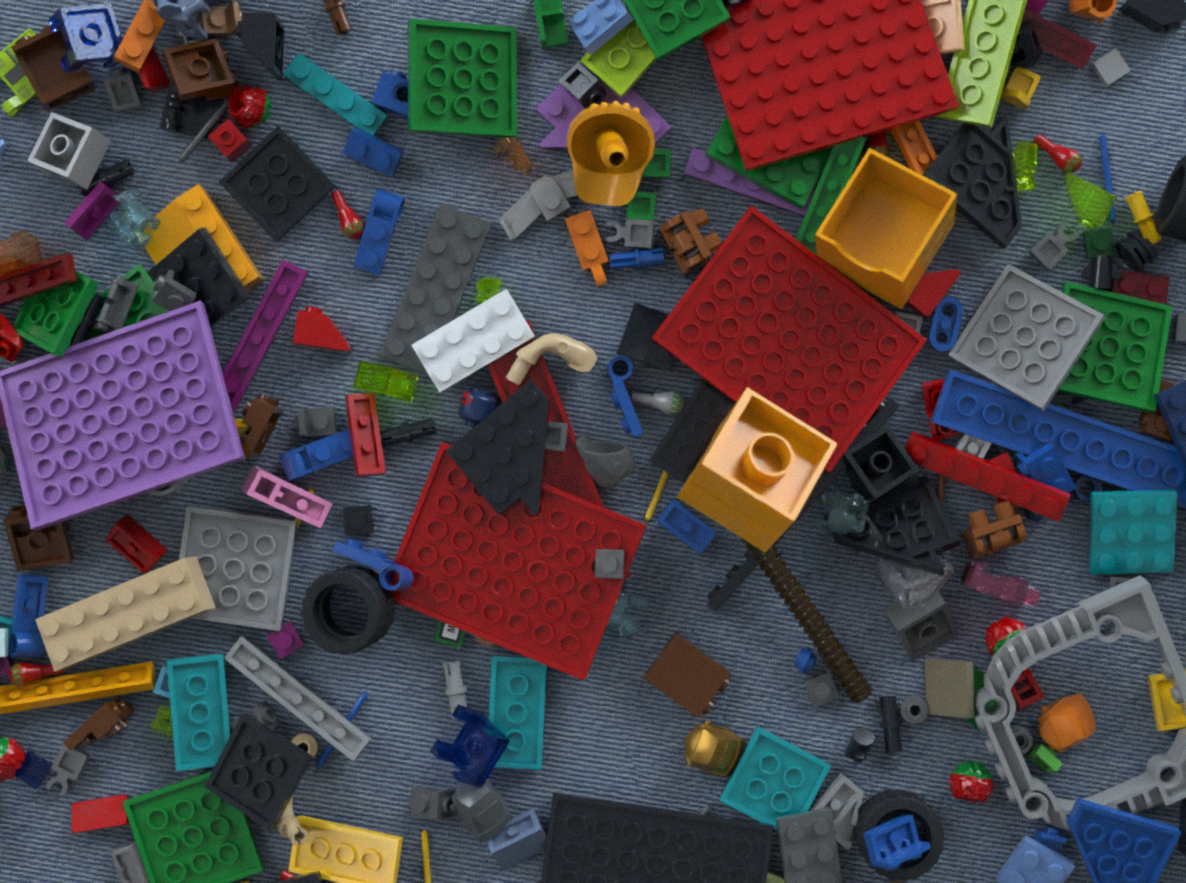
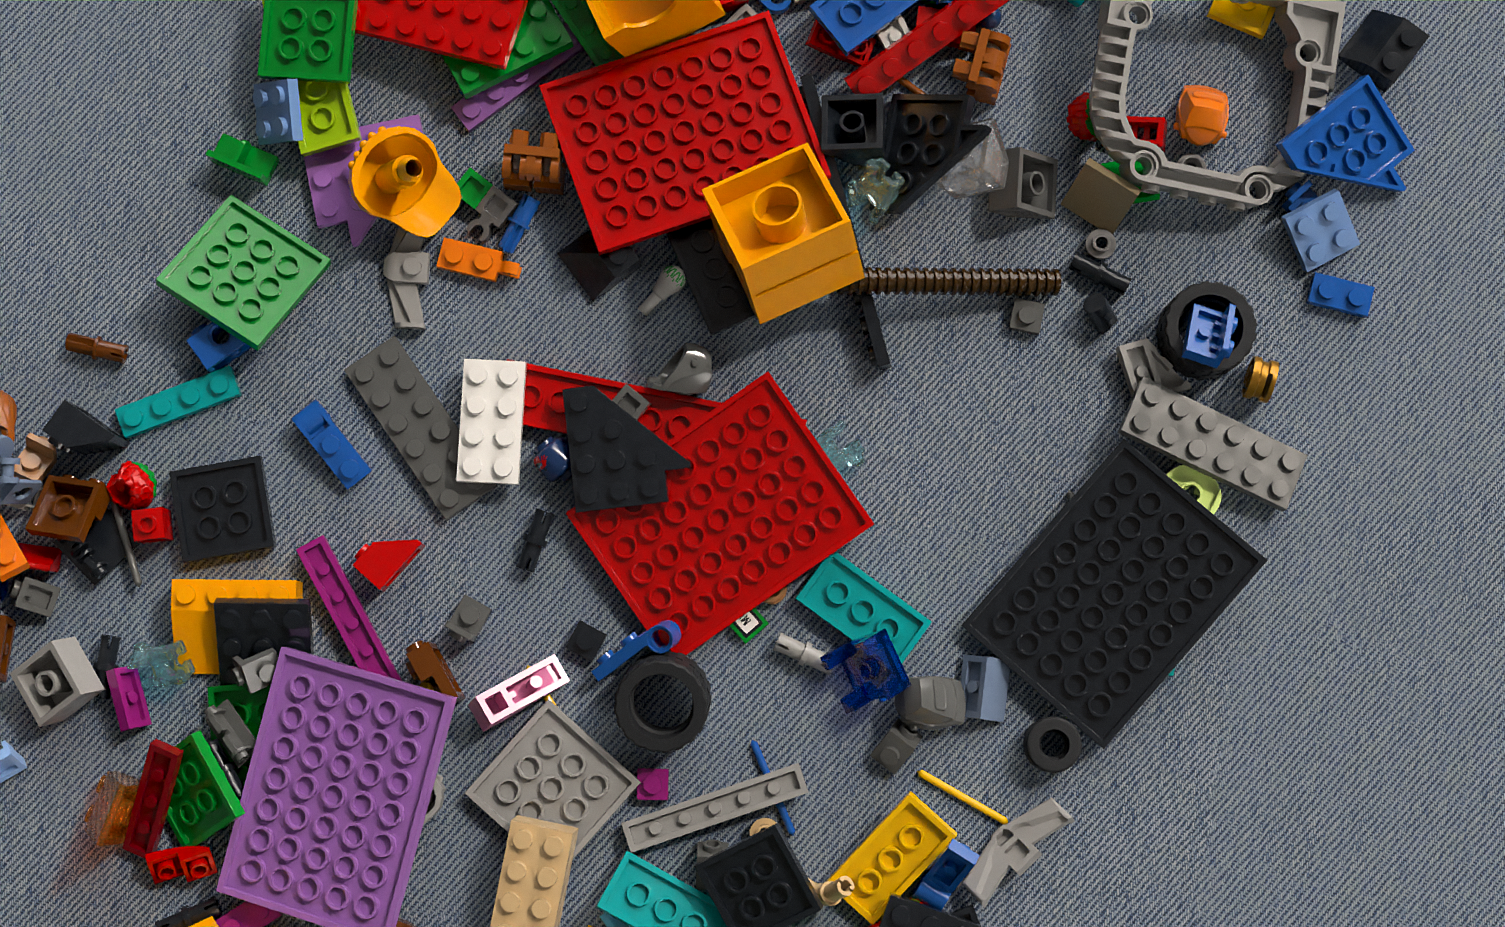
camera: 60 degrees left, 5 degrees down
(136, 544) = (468, 868): red slope -> none
(317, 455) = (501, 633): blue plate -> none
(351, 223) = (306, 464): red piece -> none
(365, 435) = (511, 580): red plate -> none
(373, 152) = (254, 400): blue plate -> none
(385, 381) = (473, 529): clear neon green slope -> none
(485, 284) = (447, 378): clear neon green plate -> none
(518, 158) = (351, 269): clear orange bracket -> none
(575, 352) = (567, 335): tan piece -> none
(583, 86) = (325, 167): black bracket -> none
(609, 563) = (781, 427): flat silver plate -> none
(621, 398) = (636, 321): blue plate -> none
(656, 496) = (748, 350): yellow axle -> none
(659, 165) = (447, 148): green plate -> none
(686, 526) = (795, 340): blue plate -> none
(687, 675) = (933, 428): reddish brown panel -> none
(713, 748) = (1017, 450): pearl gold helmet -> none
(773, 778) = (1080, 413): teal plate -> none
(805, 660) = (990, 312): blue plate -> none
(971, 782) = (1201, 234): red piece -> none
(1009, 589) = (1044, 84): clear pink hips -> none
(1044, 758) = (1222, 155): bright green plate -> none

